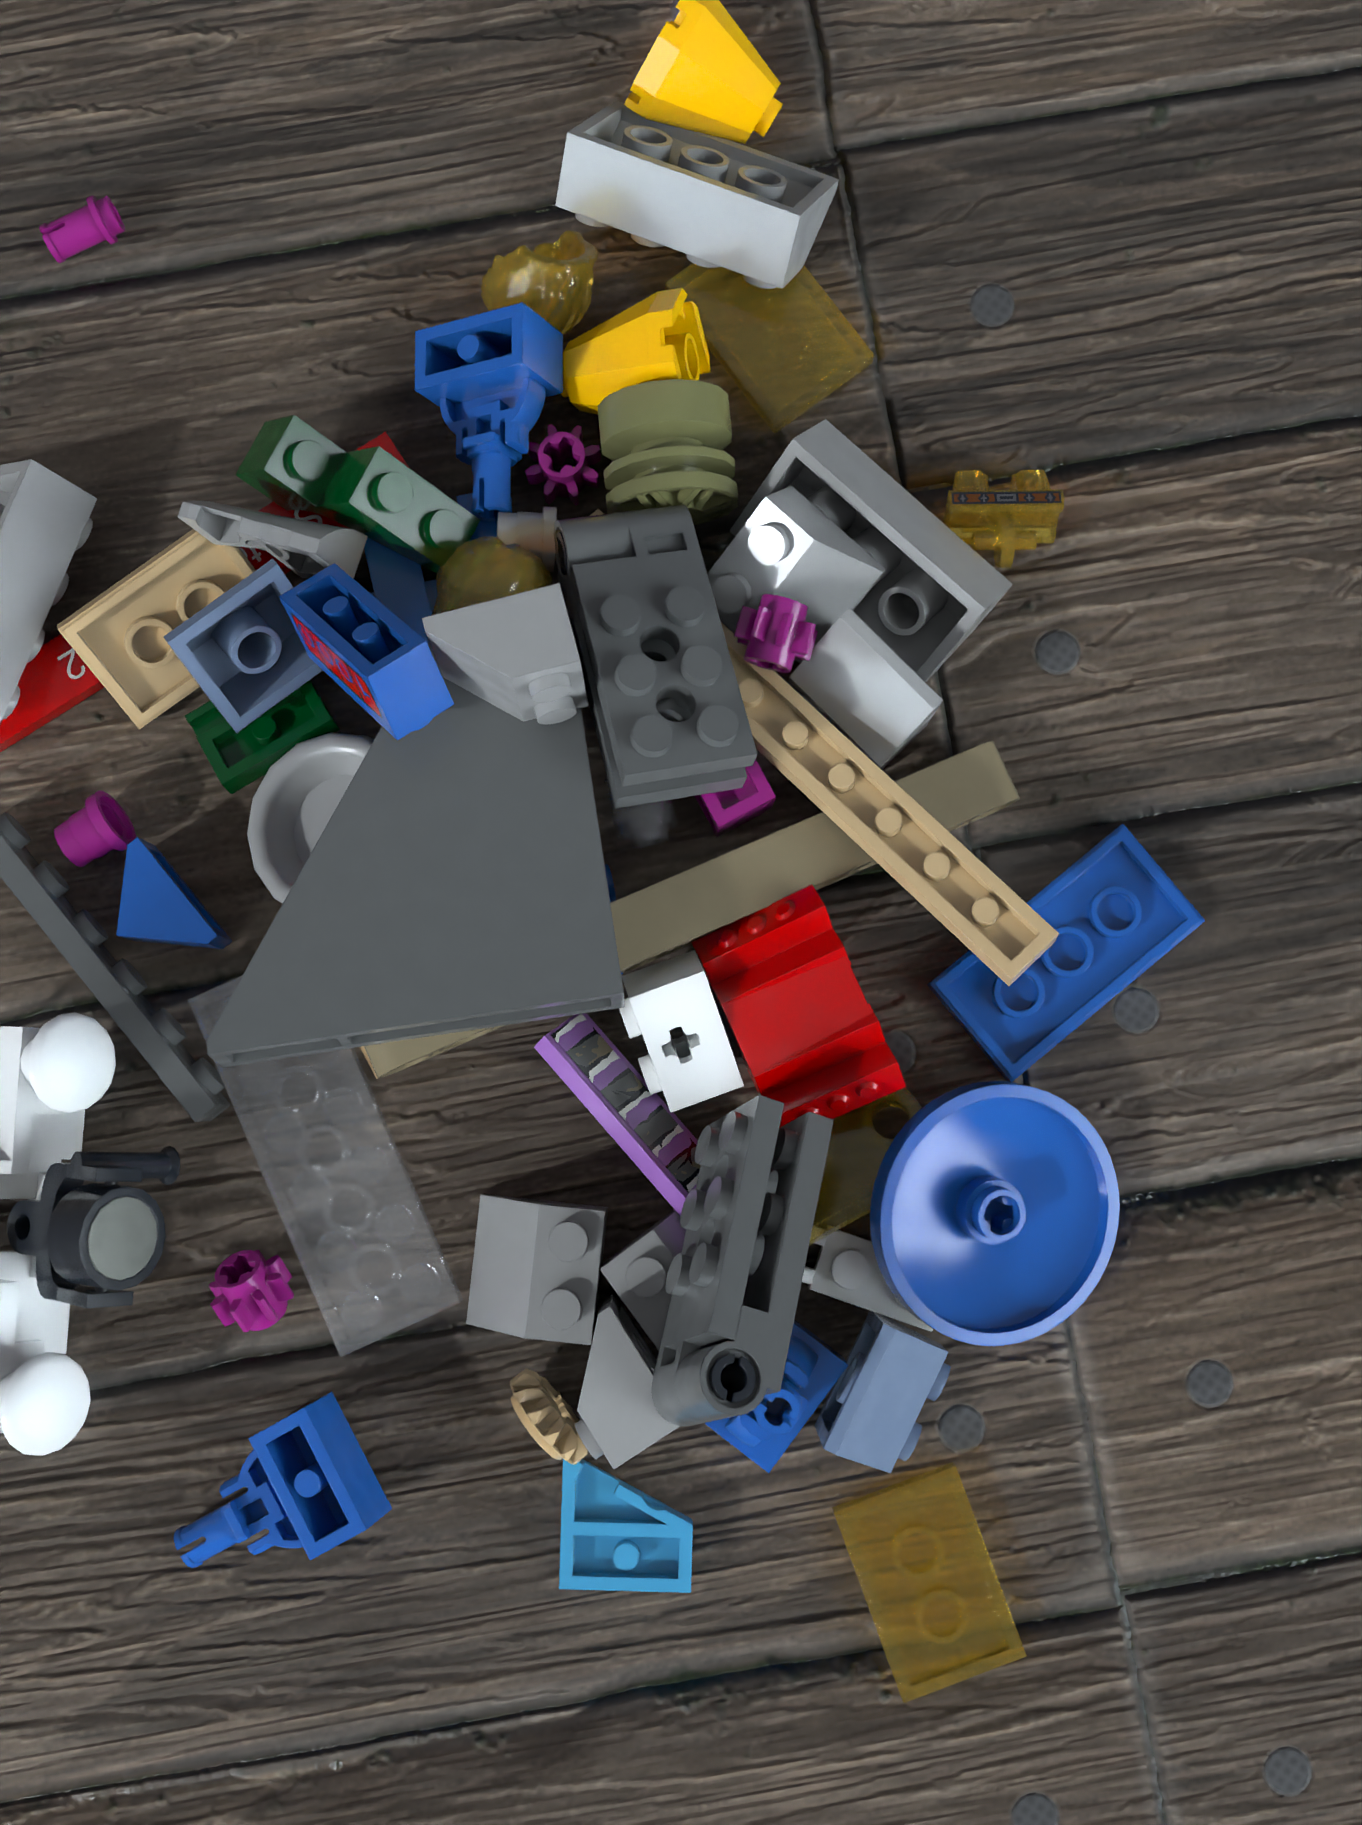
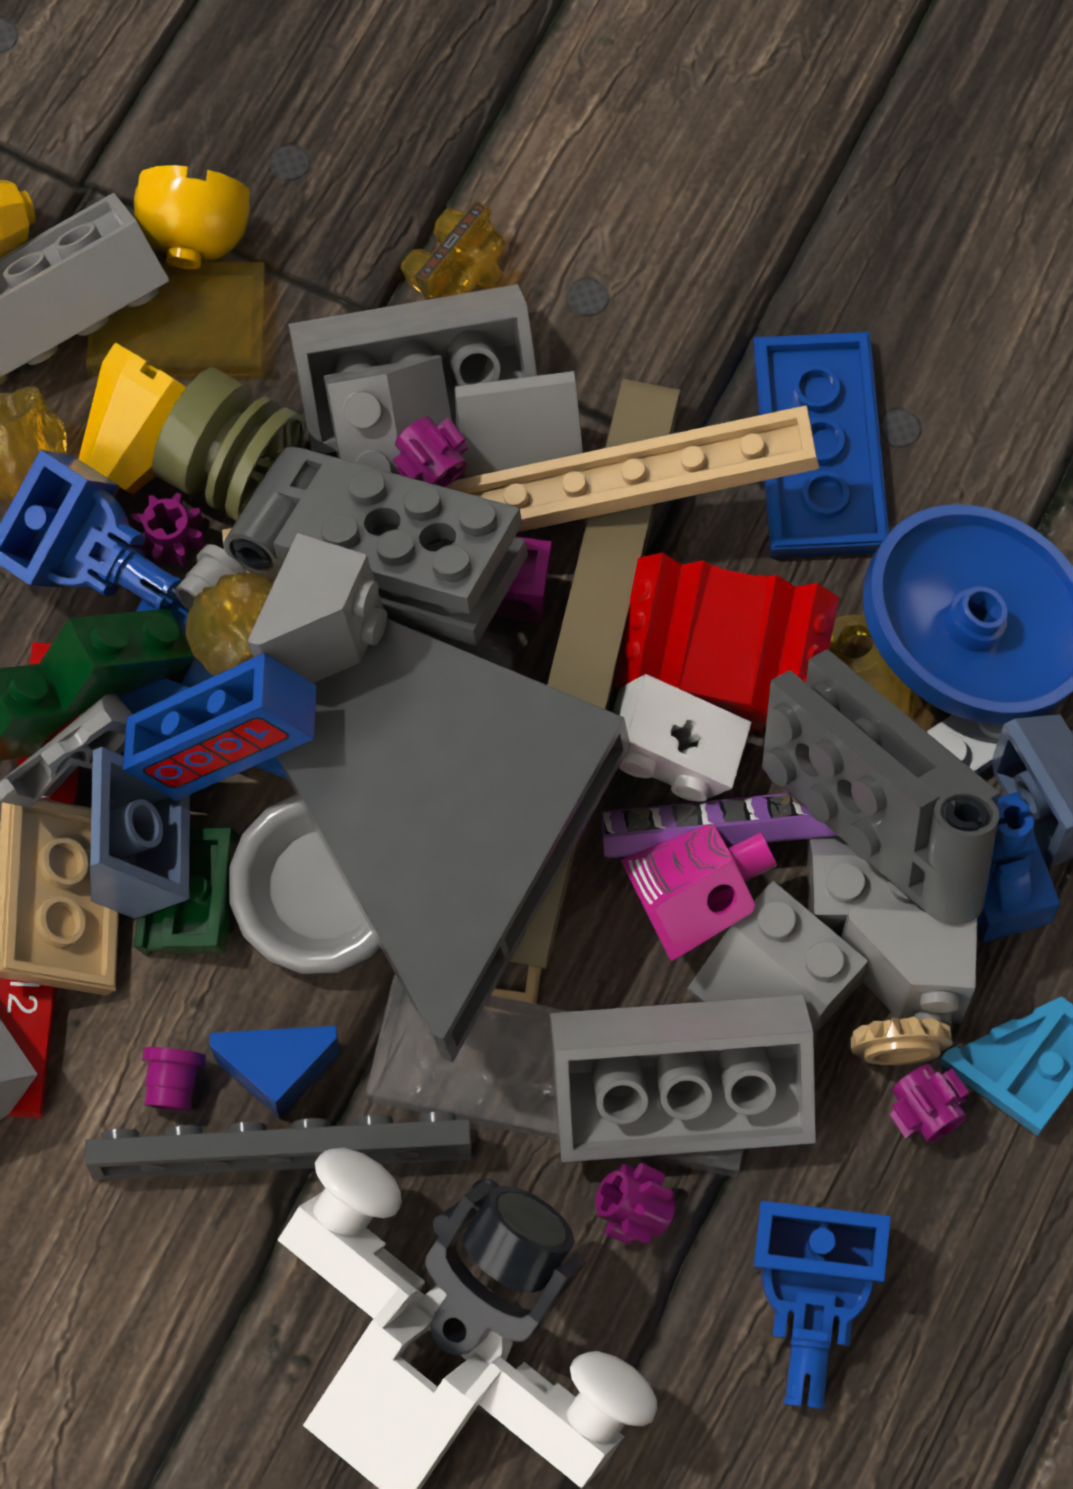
camera: 55 degrees left, 15 degrees down
(377, 1256) = (684, 1078): none -> light grey slope
(514, 1477) = (929, 1103): none -> magenta gear
(550, 1147) = (696, 885): none -> dark pink torso
(860, 259) = (190, 216): none -> yellow cylinder

